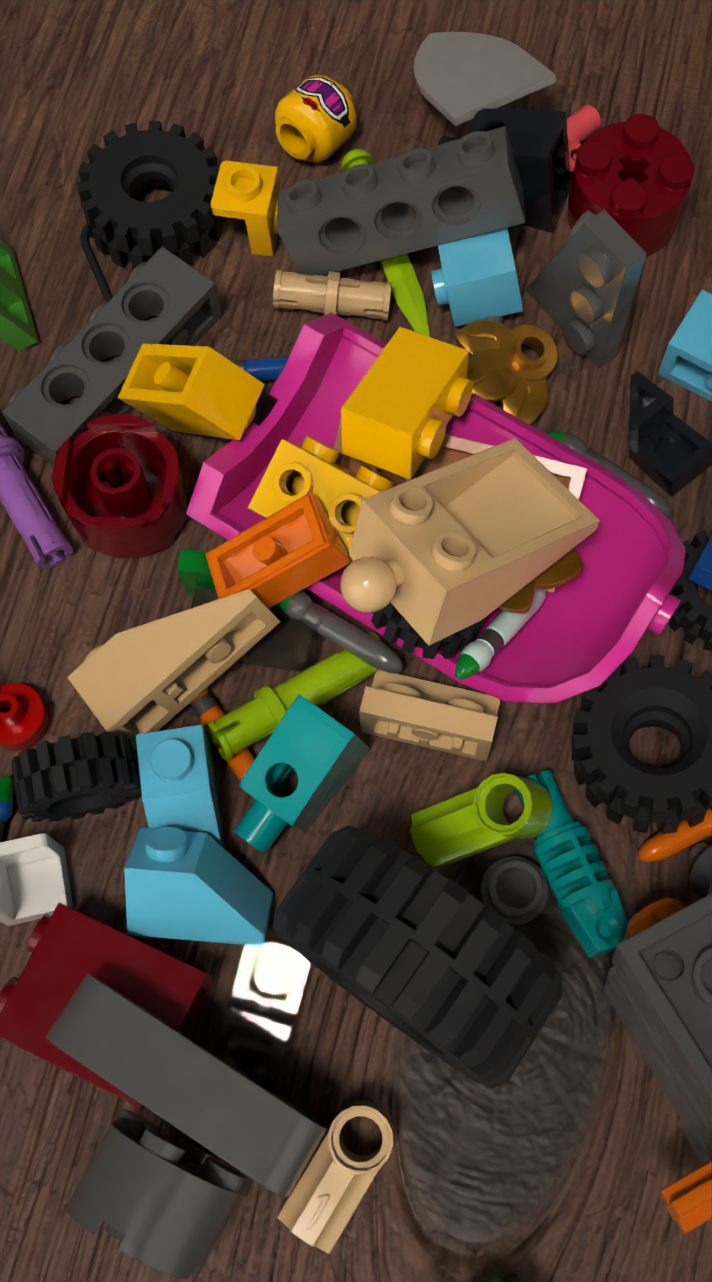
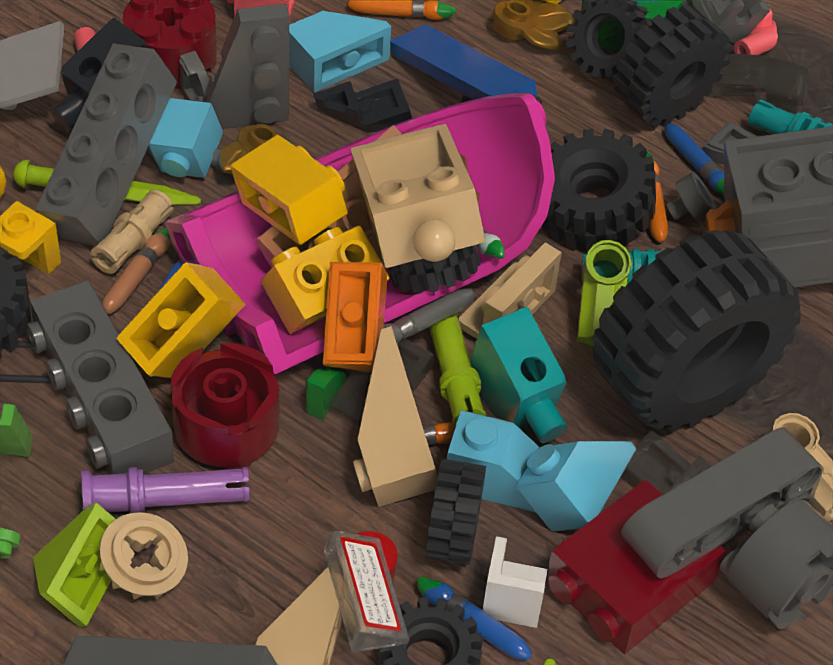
camera: 75 degrees left, 20 degrees down
(268, 325) = (136, 271): none -> nougat piece

